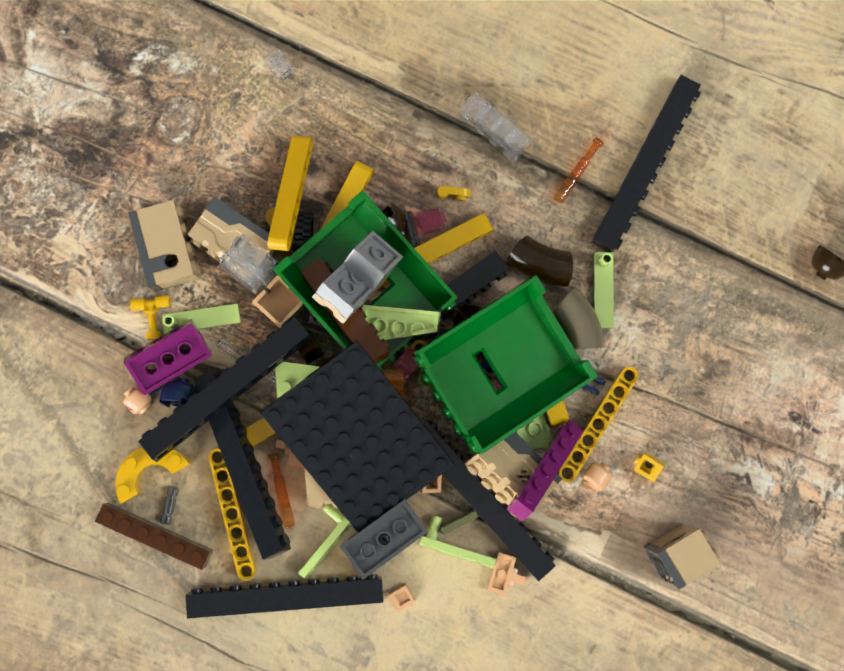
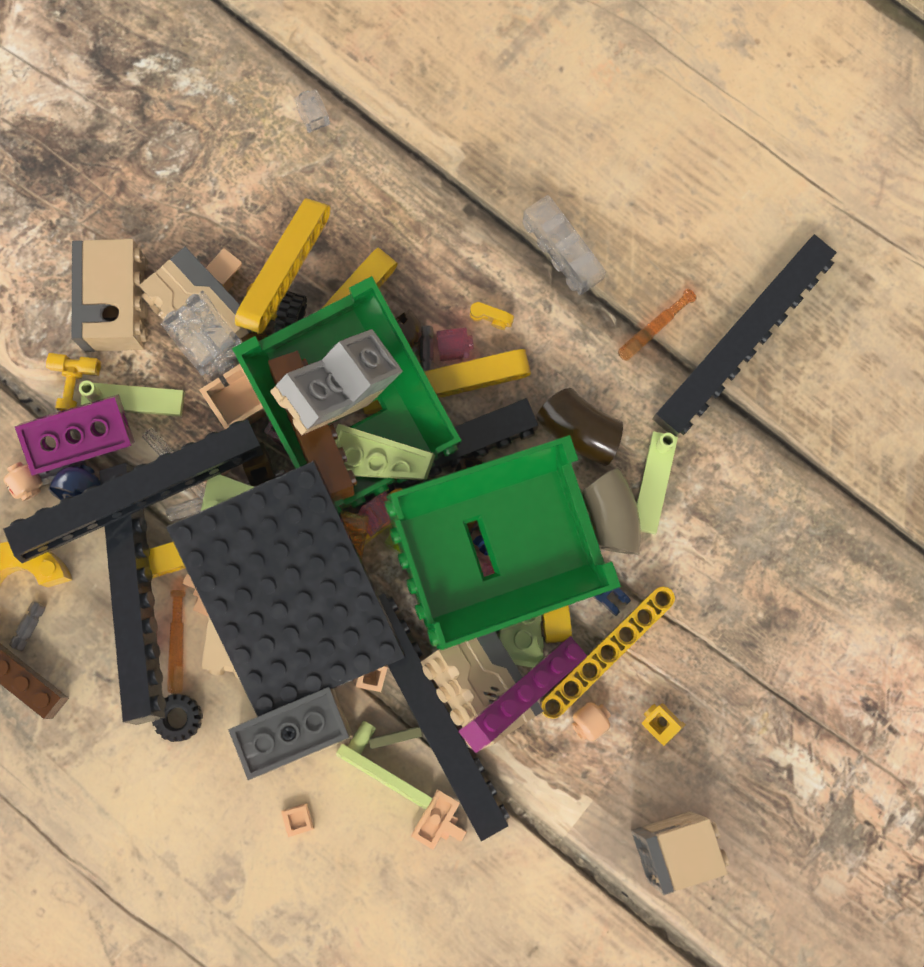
camera: 15 degrees right, 5 degrees down
(230, 523) = (99, 669): yellow beam -> none
(245, 203) = (224, 267): none -> light nougat panel
(284, 597) = (143, 782): black brick -> none
(308, 549) = (193, 719): none -> black tyre
(329, 543) = (218, 725): yellowish green piece -> none

